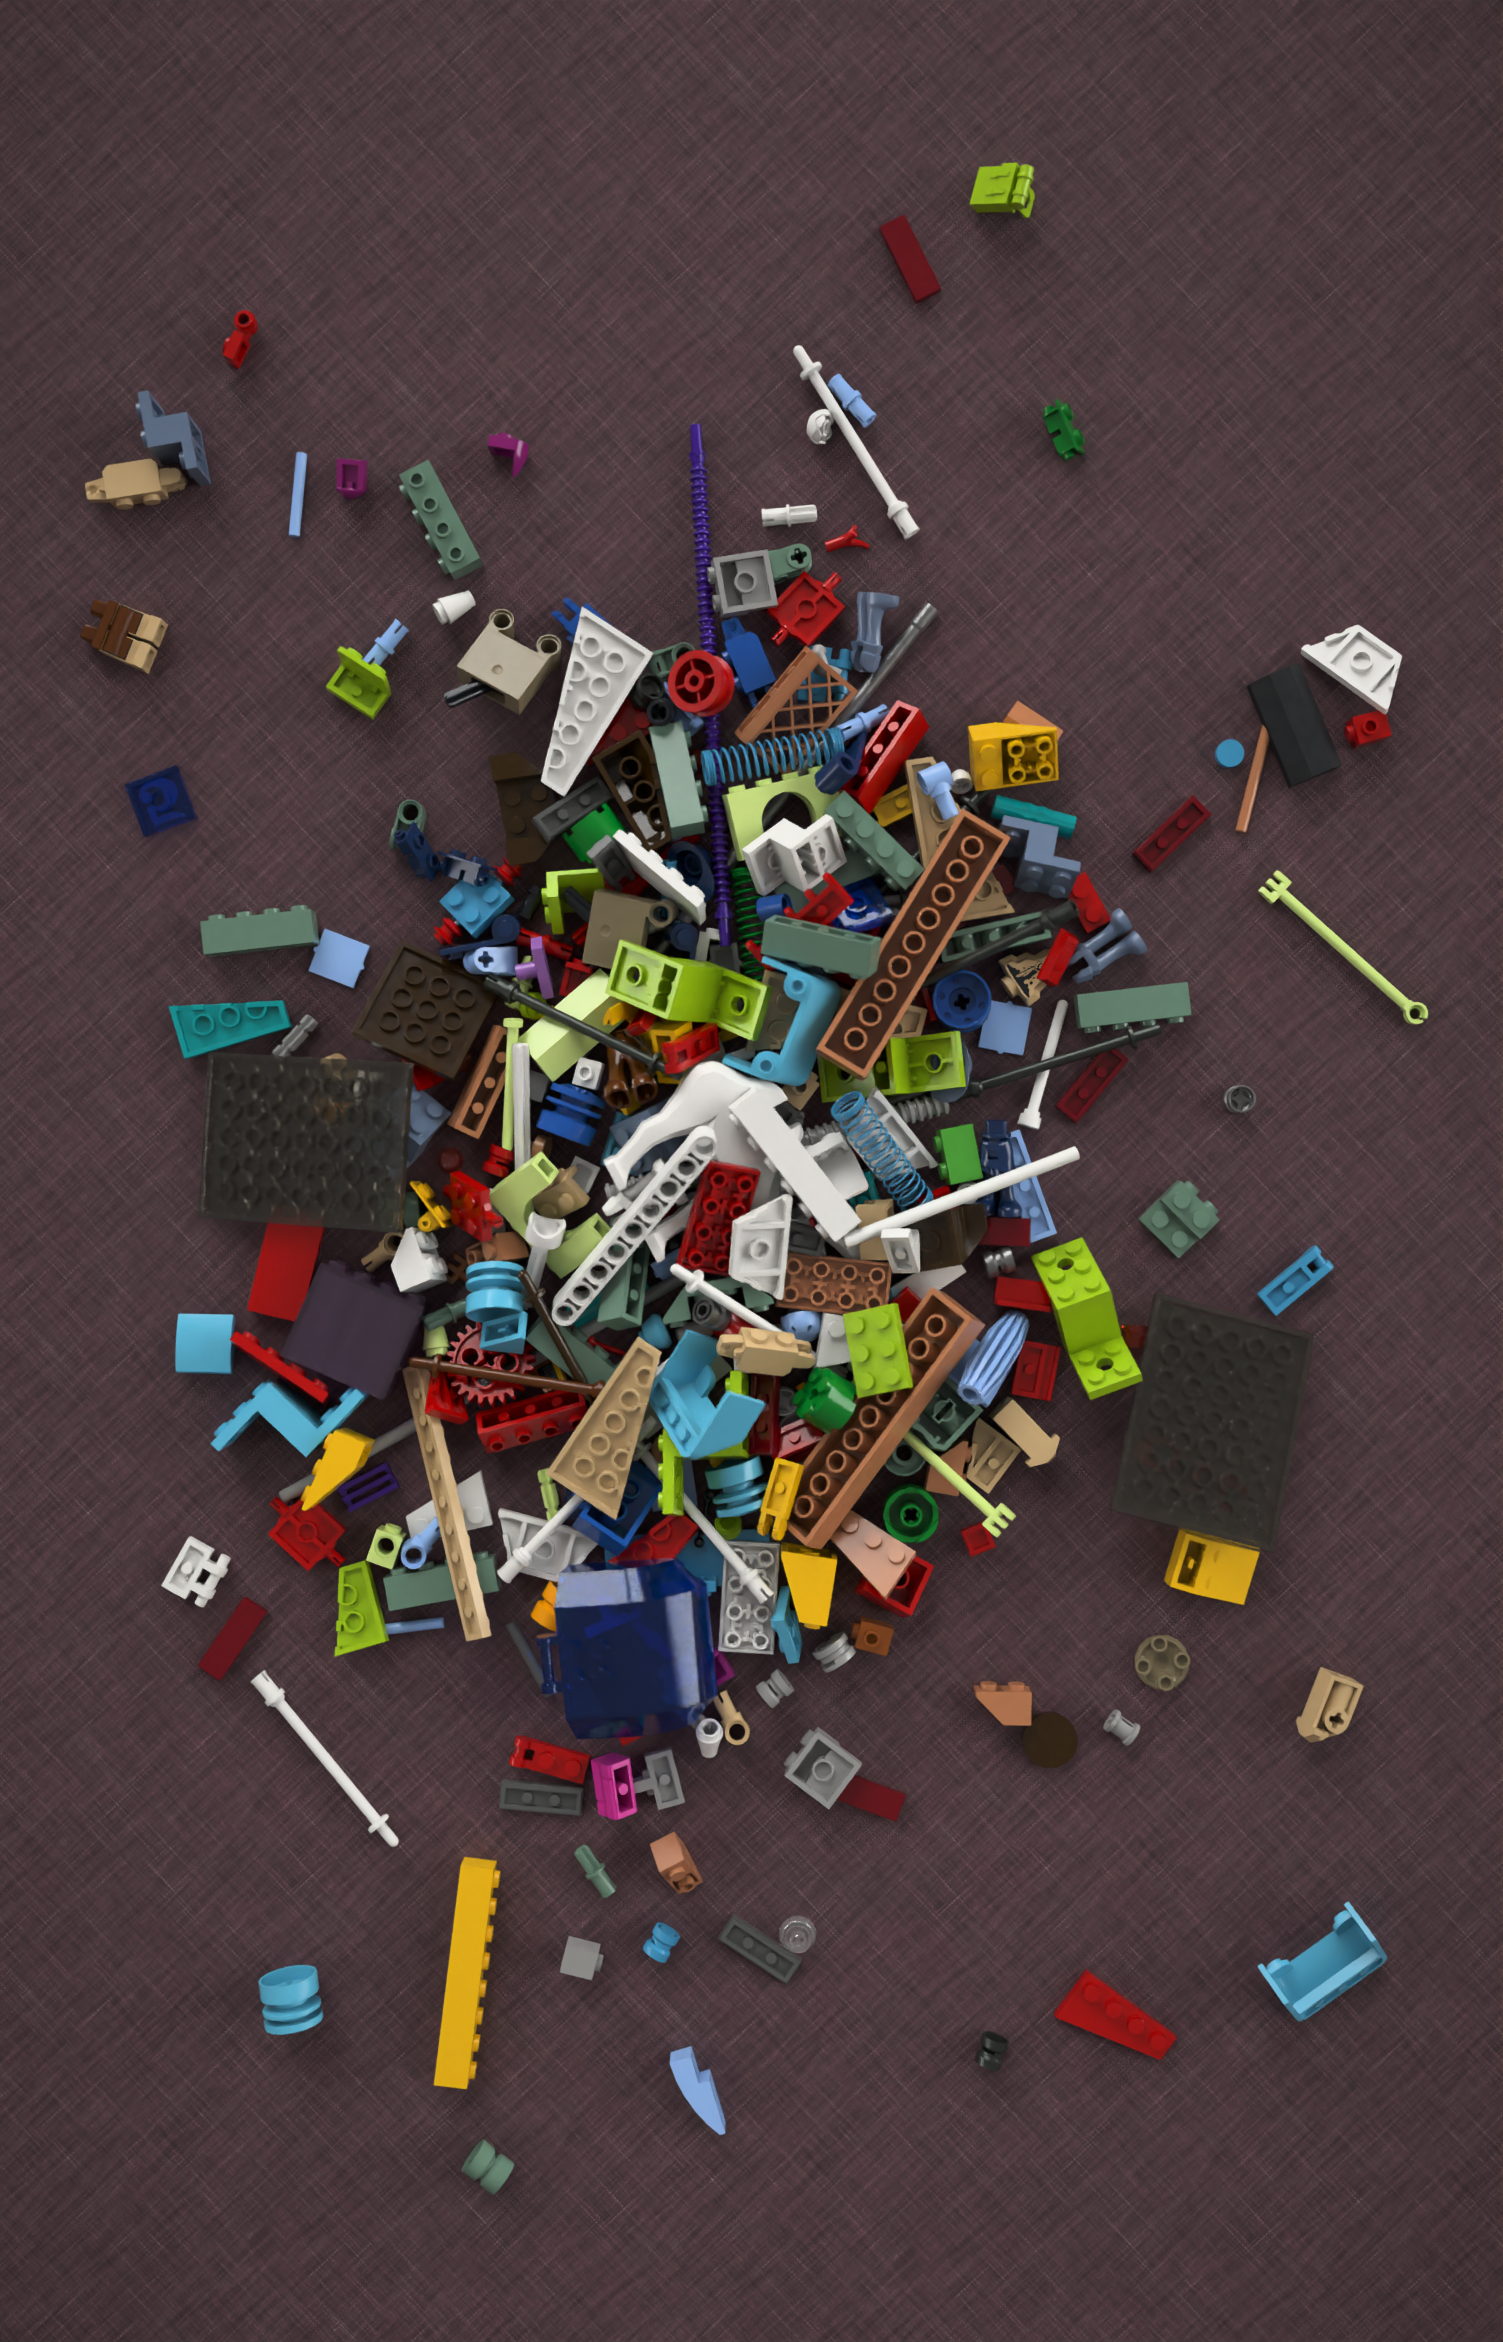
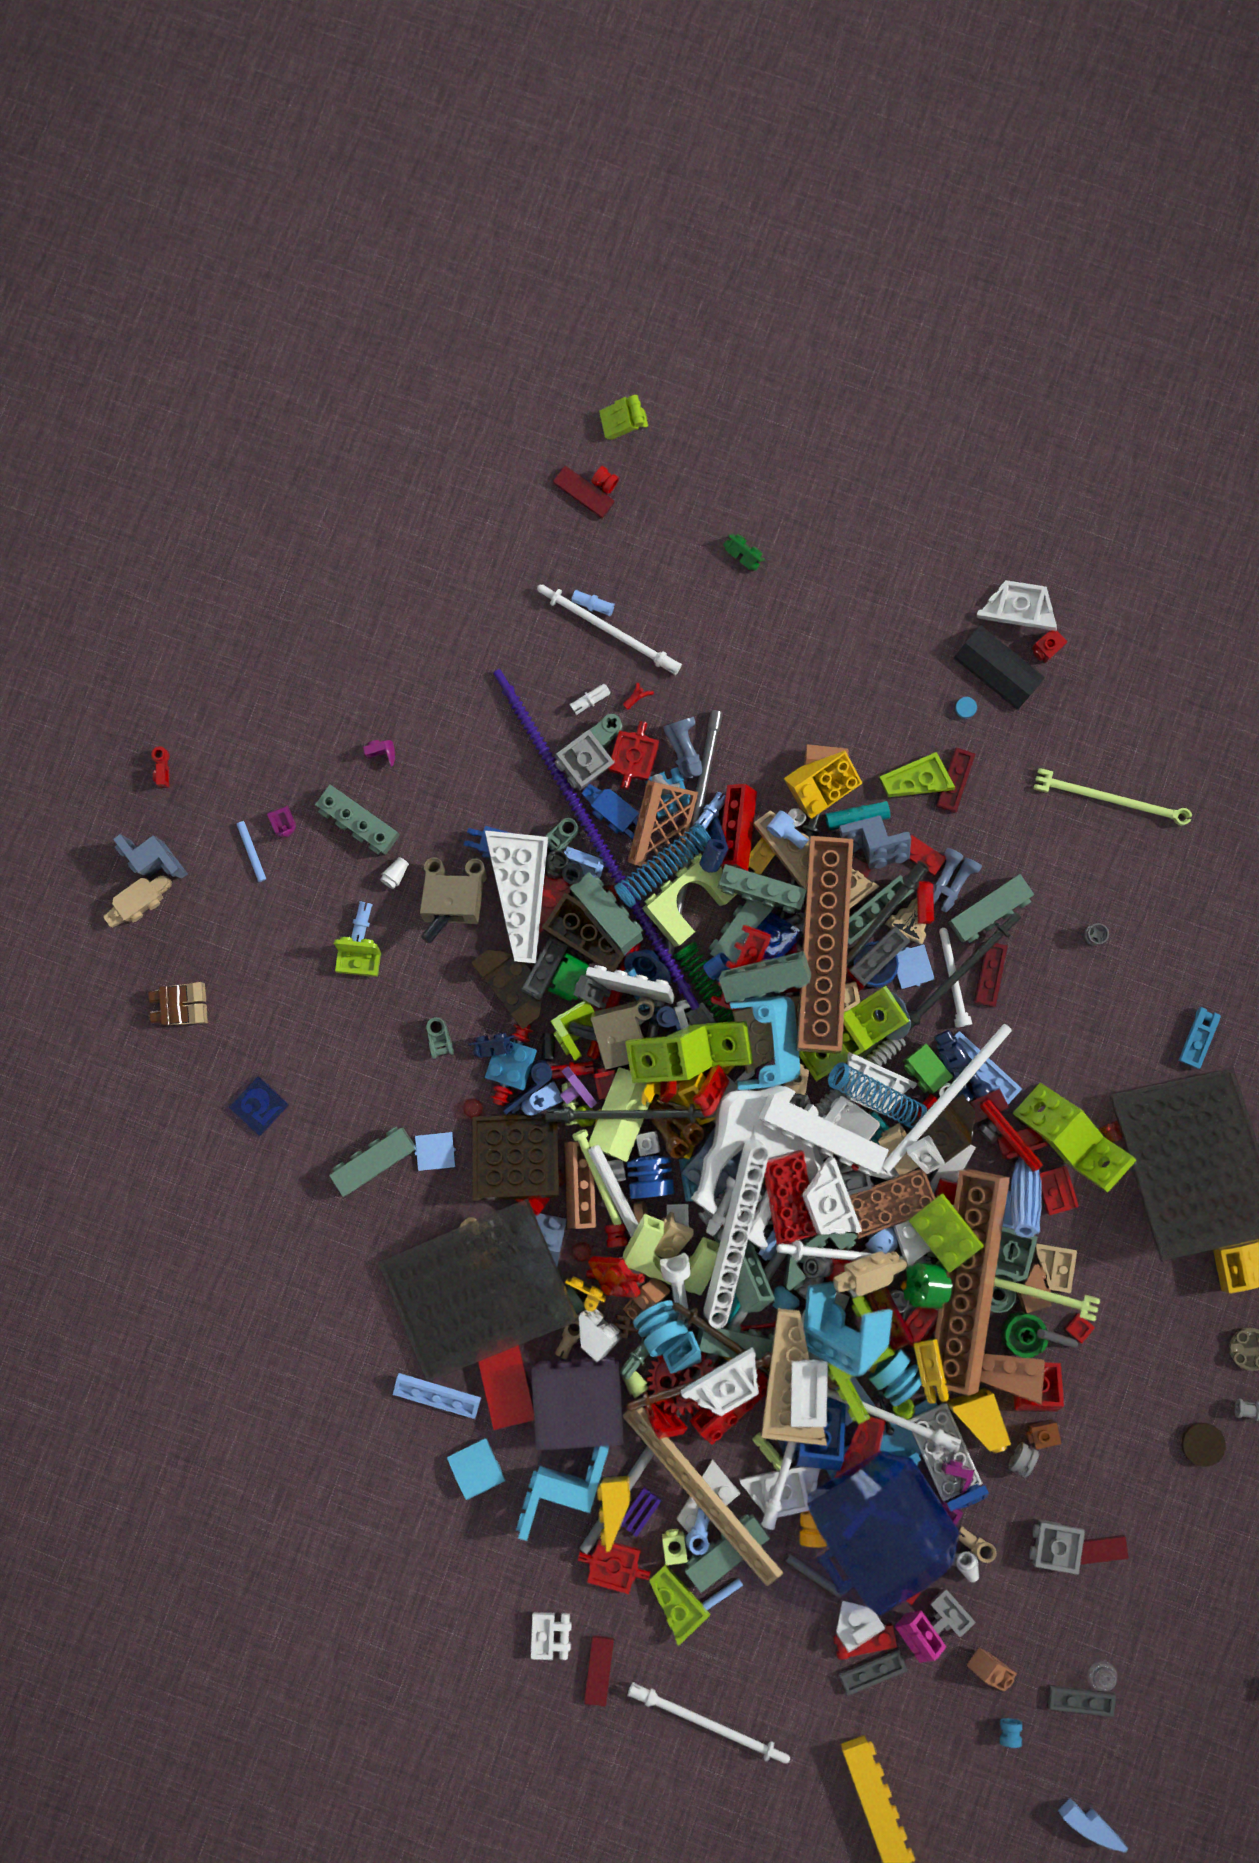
camera: 25 degrees left, 5 degrees down
(201, 1238) = (436, 1396): none -> light blue plate
(222, 1025) = (376, 1240): teal wing -> none
(274, 1362) = (531, 1457): red tile -> none
(296, 1036) = (432, 1221): light grey axle -> none
(408, 930) = (473, 1108): none -> clear red piece
(424, 860) = (461, 1055): dark blue hinge -> none
(535, 1394) = (726, 1385): none -> white wing
(548, 1737) = (857, 1625): none -> white plate
(581, 1958) = (961, 1774): light grey brick -> none
(595, 1871) = (938, 1705): sand green axle -> none
(624, 1451) = (809, 1393): none -> white piece
(701, 683) = (590, 841): red wheel -> none
(750, 1621) = (956, 1468): none -> magenta plate
(756, 1662) = (974, 1495): none -> blue wing
(775, 1688) = (997, 1503): light grey wheel -> none
(786, 1625) = (980, 1458): medium azure wing -> none
(794, 855) = (713, 924): white bracket -> none
(820, 426) = (580, 630): white plate -> none
(942, 255) = (605, 479): none -> red wheel
(944, 1536) = (1057, 1338): none -> dark grey bar
(970, 992) = (879, 955): none -> dark grey tile
(1007, 1703) = (1161, 1433): nougat slope -> none
(1014, 1279) = (1011, 1135): none -> red axle
(1025, 1432) = (1073, 1237): tan piece -> none
(1128, 807) = (918, 777): none -> lime wing
(1180, 1218) = (1099, 1035): sand green plate -> none
(1253, 781) = (991, 717): nougat bar -> none

